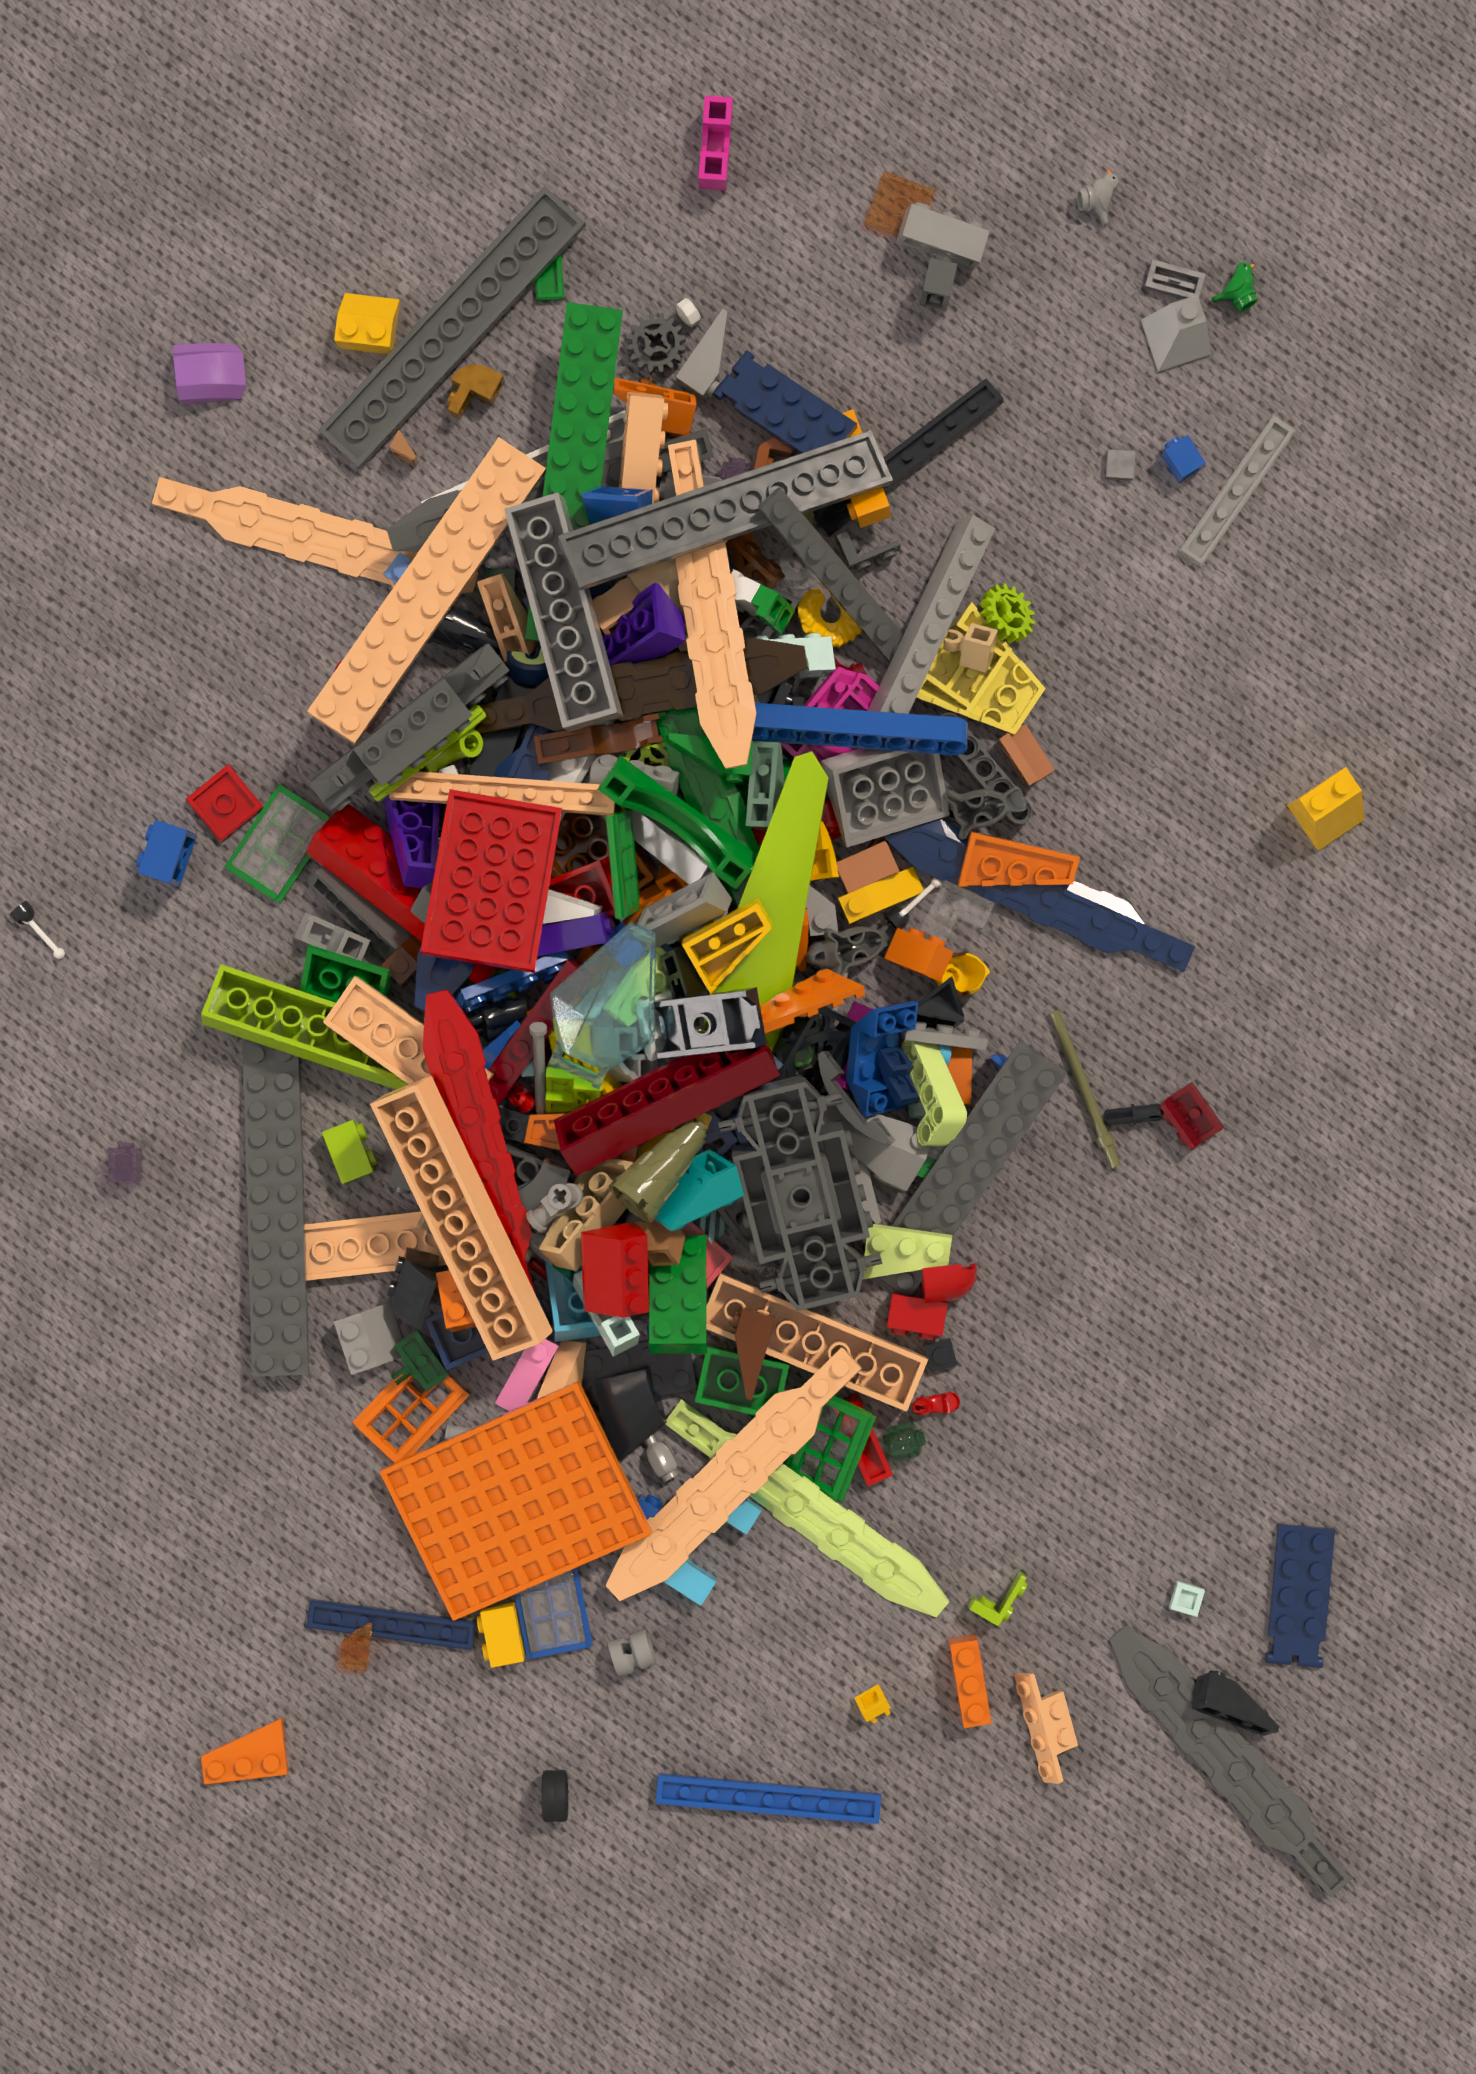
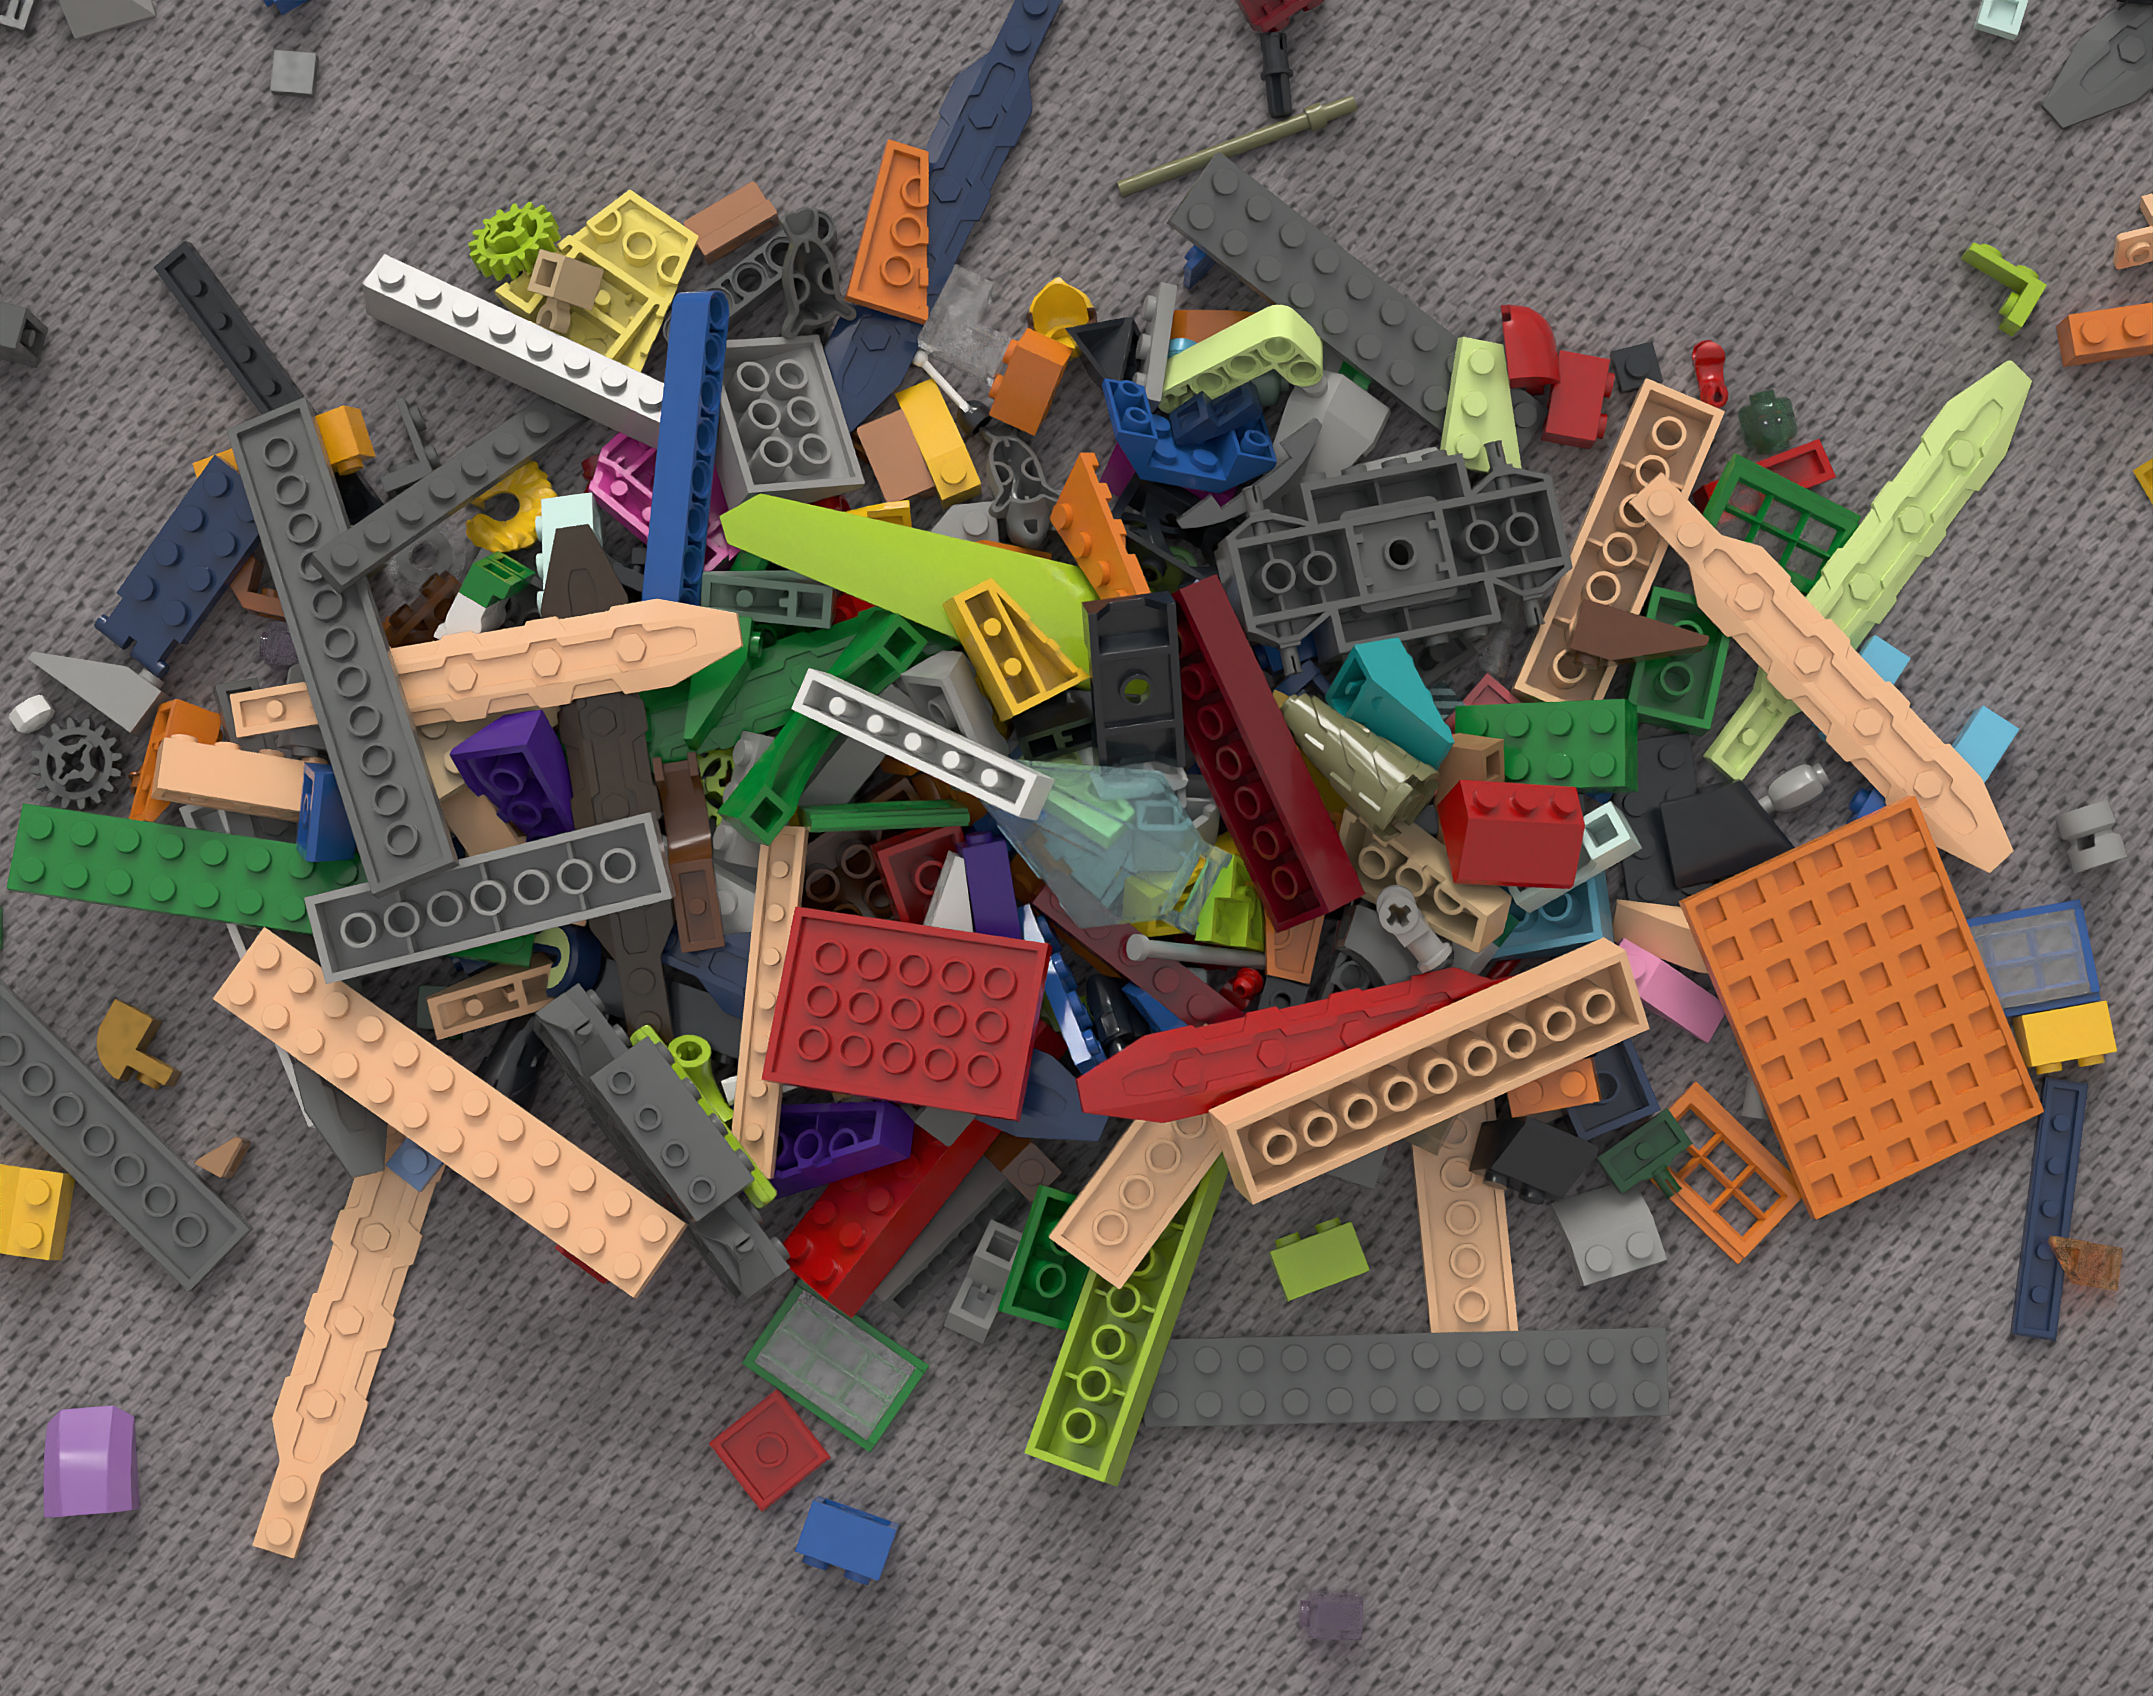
camera: 90 degrees left, 5 degrees down
(661, 886) = (923, 744): none -> white brick

